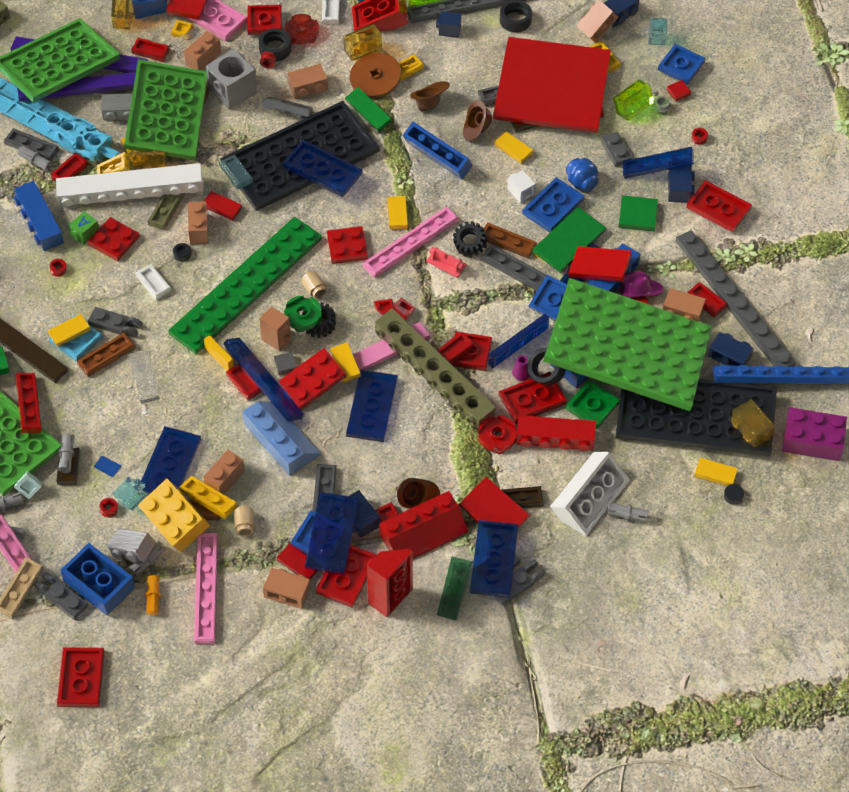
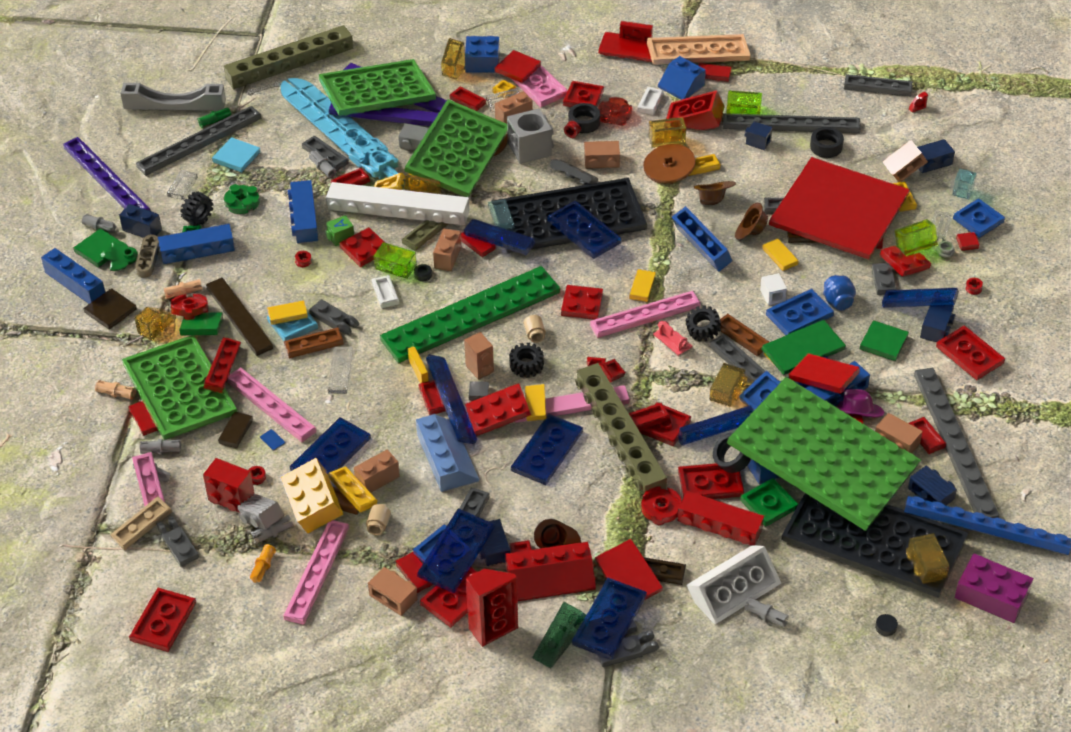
camera: 20 degrees right, 10 degrees down
(28, 485) = (189, 435): light aqua tile -> none
(66, 453) = (237, 416): light grey pin -> none
(90, 526) = (228, 484): none -> red brick
(92, 431) = (271, 405): none -> bright pink tile
(97, 579) = (215, 533): blue brick -> none
(130, 493) = (279, 465): clear light blue brick -> none
(151, 247) = (395, 260): none -> clear neon green brick
(244, 196) = (499, 236): none -> clear blue tile
(303, 322) = (507, 356): green plate -> none
(368, 109) = (650, 191): green tile -> none
(514, 296) = (728, 384): none -> clear yellow brick
(520, 369) = (706, 451): magenta cone -> none
(628, 129) = (904, 264): none -> red plate
(715, 472) = (874, 598): yellow tile -> none

